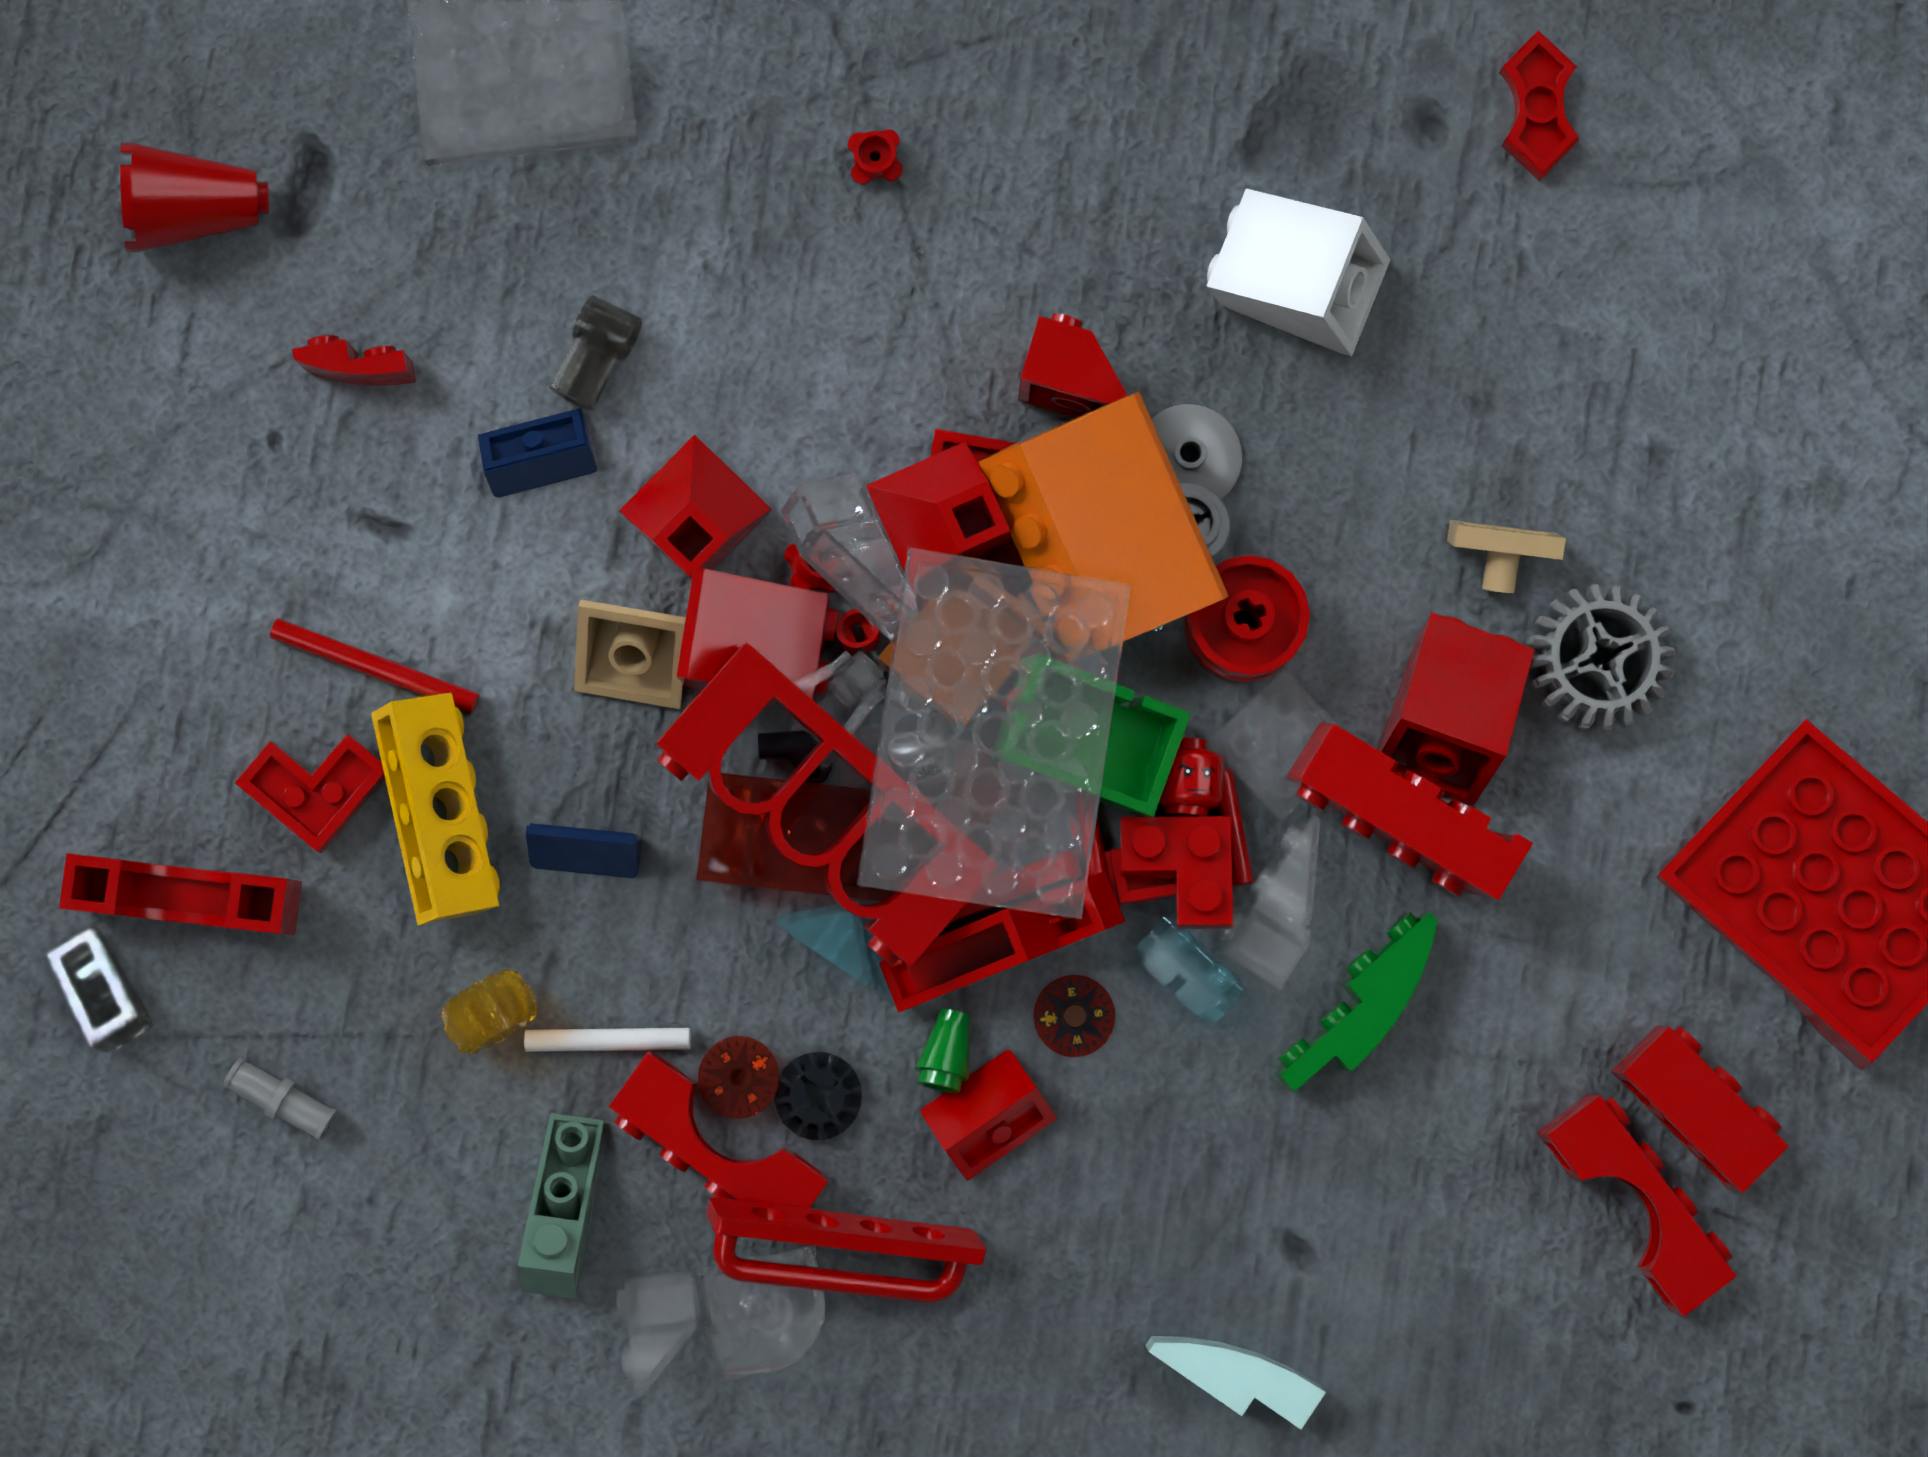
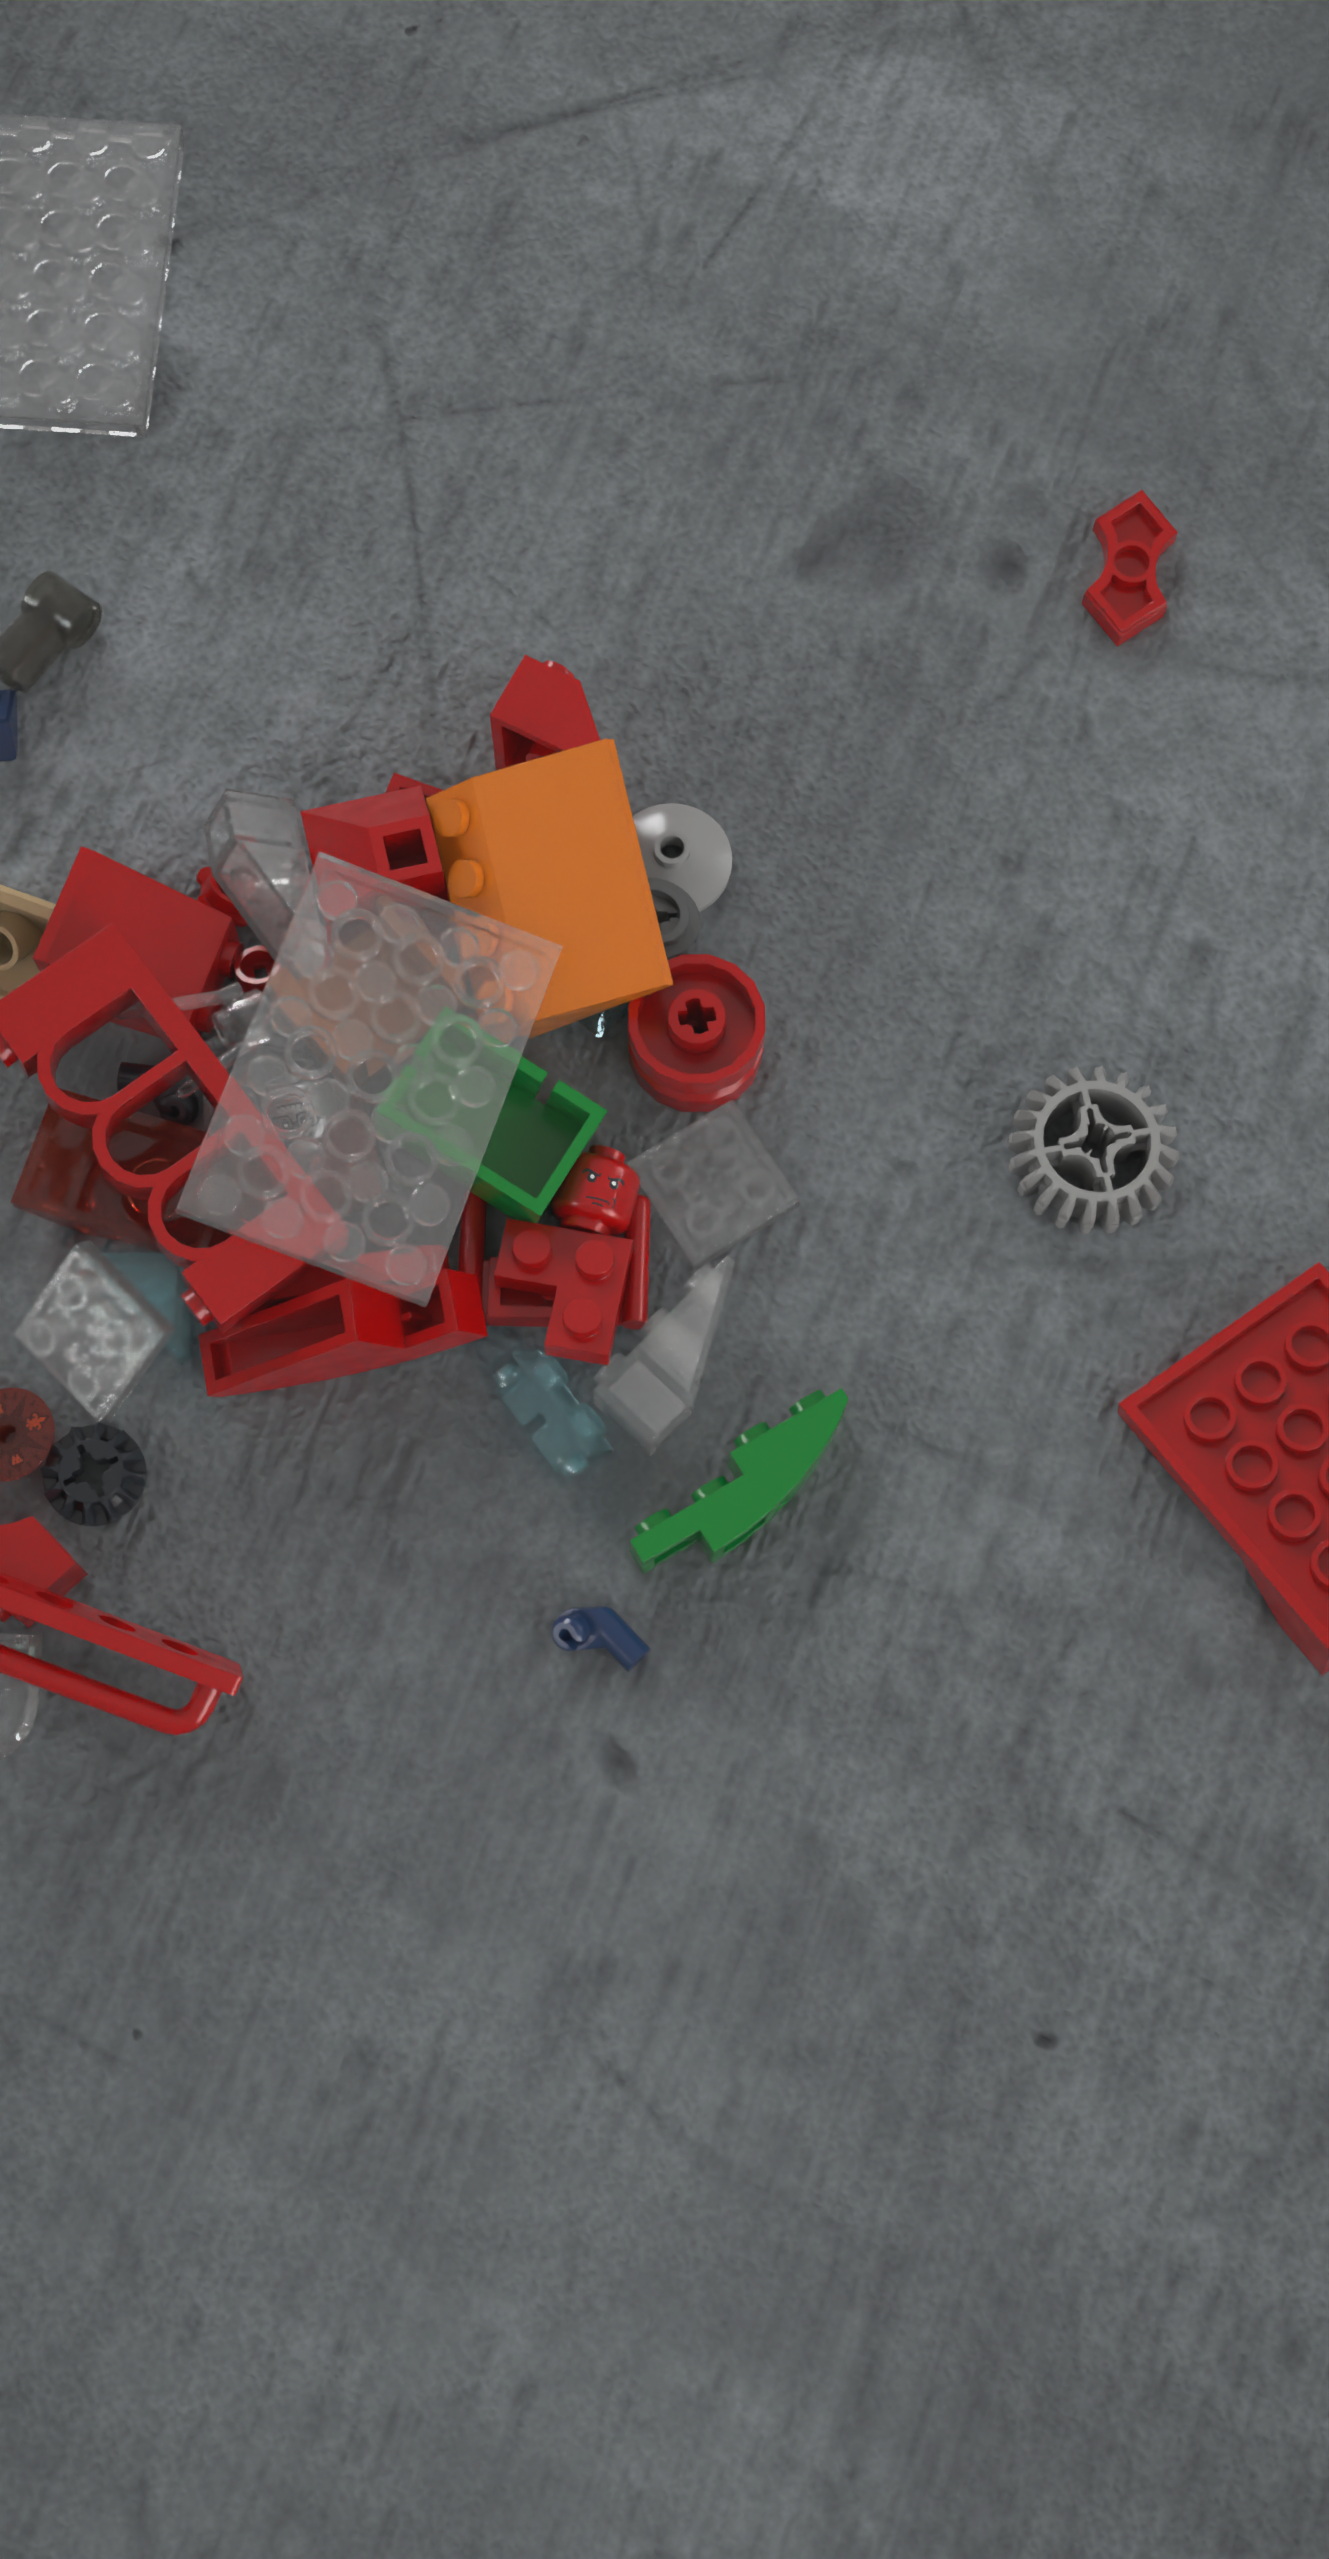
camera: 10 degrees right, 10 degrees down
(695, 509) = (113, 808): red slope -> none
(794, 979) = (94, 1331): none -> clear tile
(875, 142) = (391, 477): red plate -> none
(946, 1053) = (250, 1454): green cone -> none
(989, 1115) = (284, 1533): red panel -> none
(1074, 1015) = (411, 1442): piece -> none
(1239, 1376) = (512, 1889): light aqua slope -> none
(1264, 1145) = (596, 1629): none -> dark blue arm
(1299, 269) = (833, 680): white slope -> none
(1406, 814) = (833, 1272): red wedge -> none
(1457, 706) = (911, 1175): red slope -> none
(1504, 549) = (1004, 1013): tan tile -> none
(1679, 1257) = (990, 1698): red arch -> none
(1701, 1107) = (1122, 1677): red brick -> none

